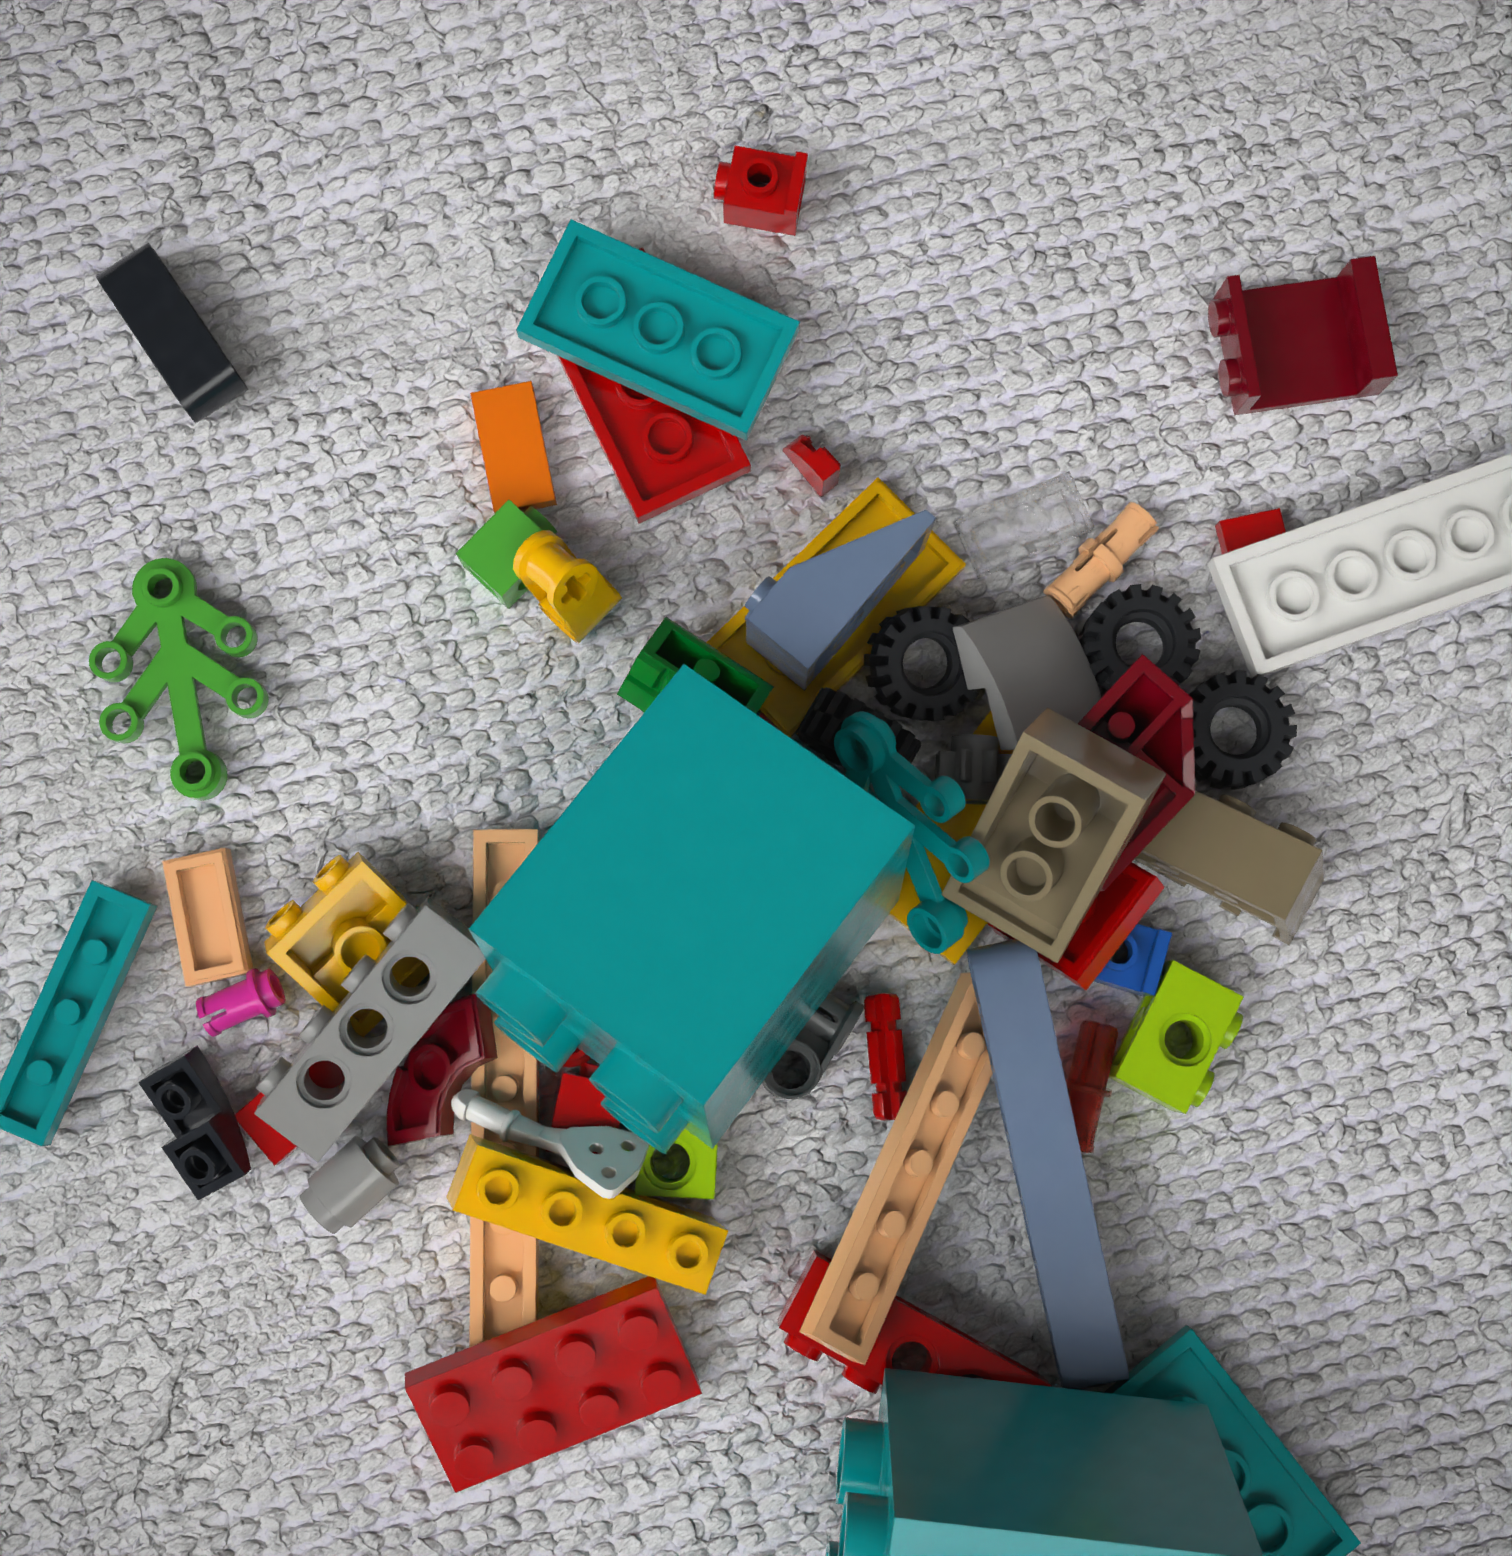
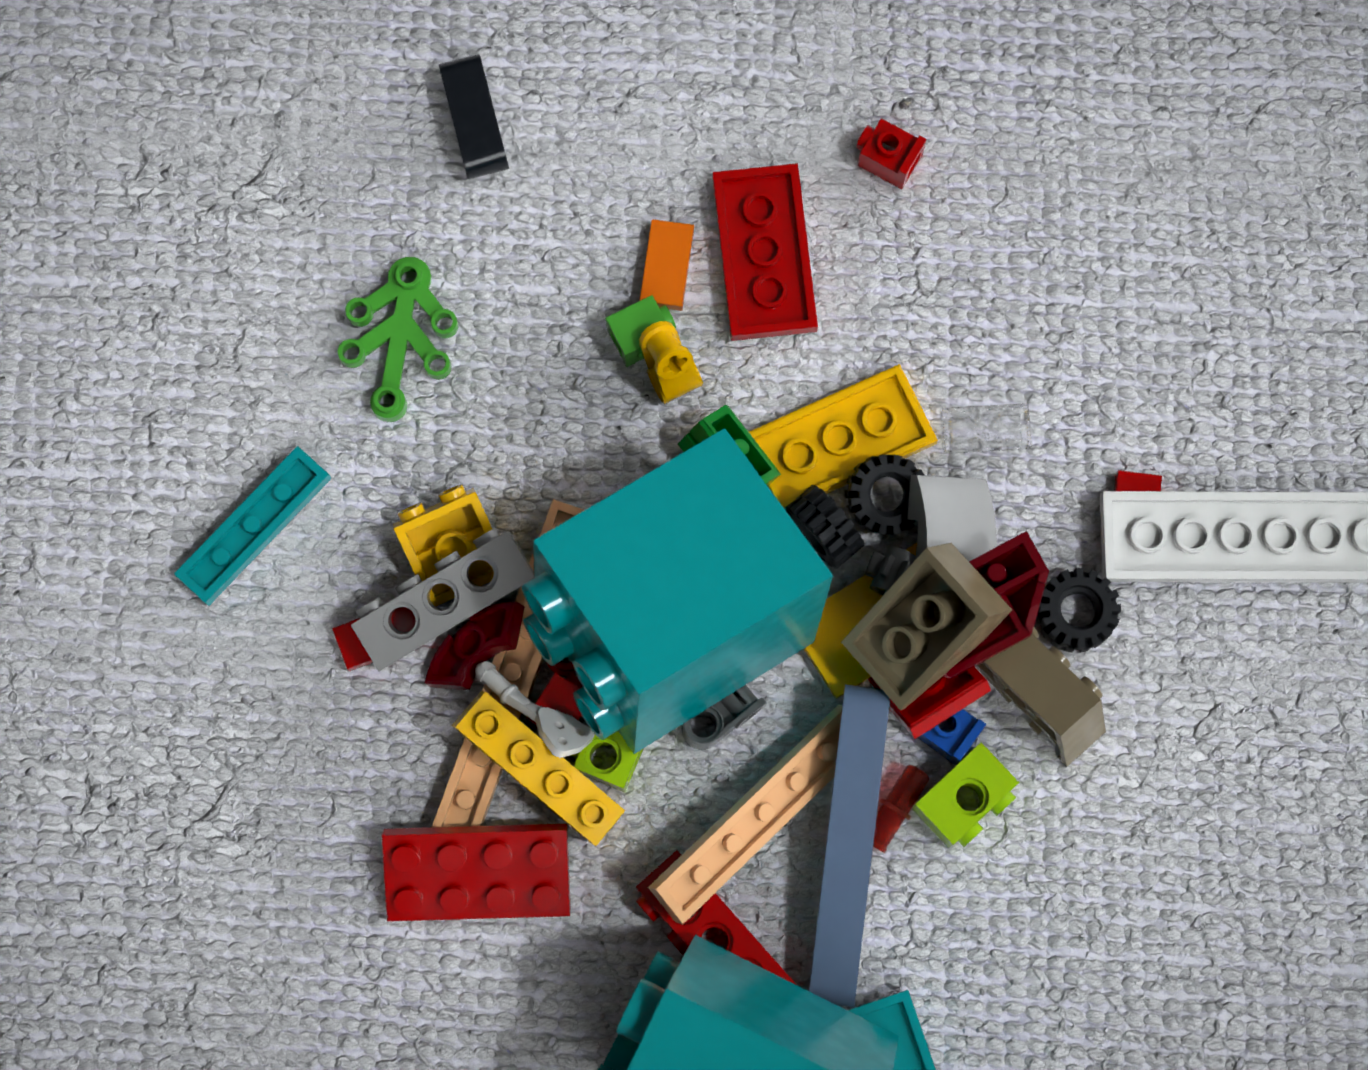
camera: 25 degrees right, 5 degrees down
(207, 917) = (361, 496): light nougat tile -> none
(207, 1137) = (310, 619): black slope -> none
(243, 1000) = (365, 557): dark pink pin -> none
(350, 1183) = (392, 697): light grey brick -> none
(658, 329) = (788, 219): teal plate -> none
(816, 466) = (860, 341): red tile -> none
(826, 598) = (835, 427): sand blue slope -> none
(870, 756) = (825, 533): teal plant -> none
(885, 1054) = (770, 738): red axle -> none
(1101, 559) = (1029, 468): light nougat pin -> none
(1150, 608) = (1051, 512): black tyre -> none
(1303, 340) = (1215, 371): dark red panel -> none

